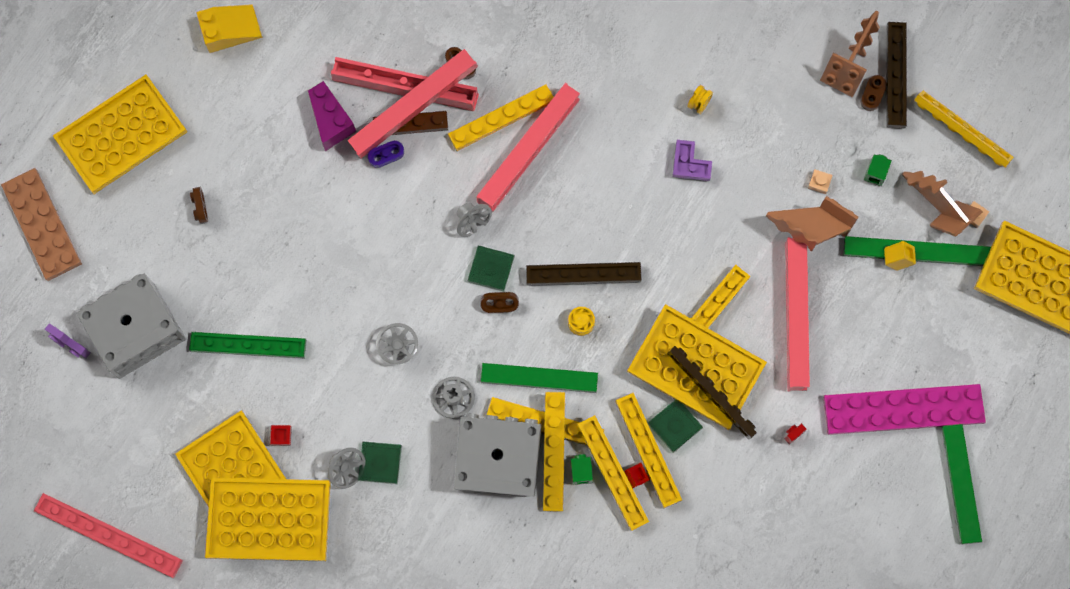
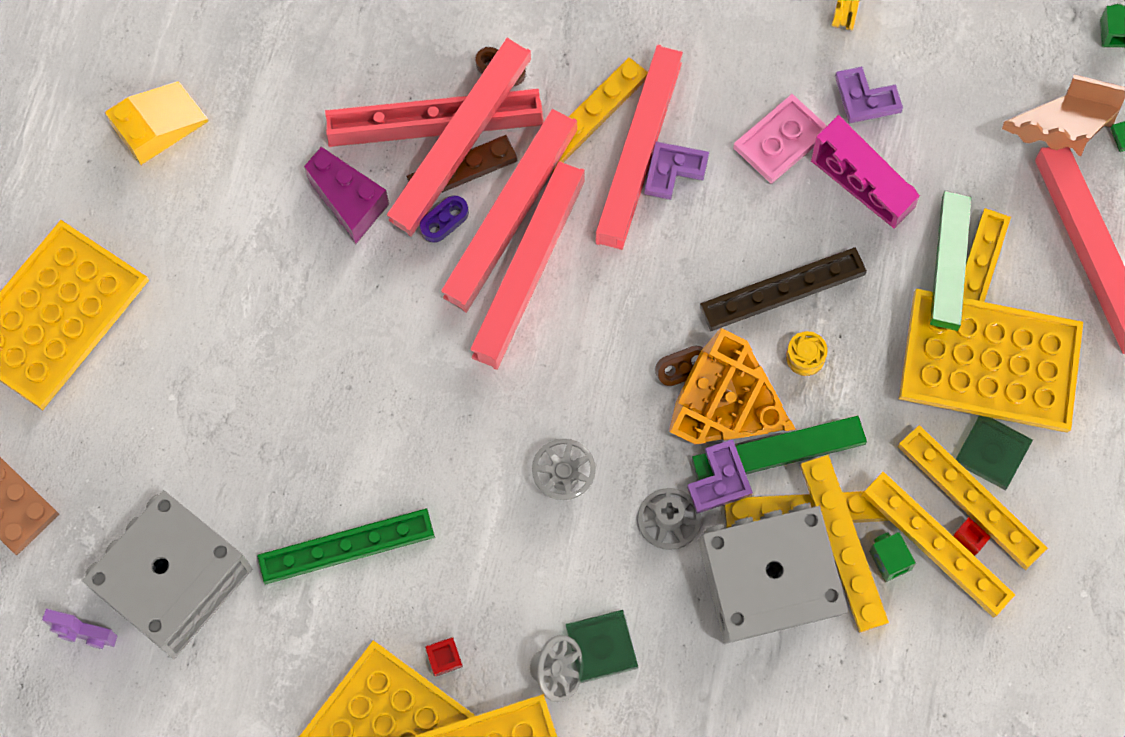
camera: 20 degrees left, 5 degrees down
(198, 198) = (198, 365): reddish brown plate -> none
(427, 202) = (527, 265): none -> coral tile
(428, 162) = (509, 210): none -> coral tile
(470, 216) = (596, 263): light grey wheel -> none
(491, 268) = (651, 325): clear green tile -> none
(494, 389) = (726, 485): none -> medium lavender plate
(517, 332) = (727, 395): none -> light orange wedge
(543, 165) = (673, 161): none -> medium lavender plate
(623, 172) = (780, 138): none -> bright pink plate
(666, 214) = (863, 172): none -> dark pink wedge
(696, 292) = (950, 261): none -> tile
(707, 386) = (1037, 389): dark brown plate -> none
(820, 181) = (1047, 66): light nougat plate -> none

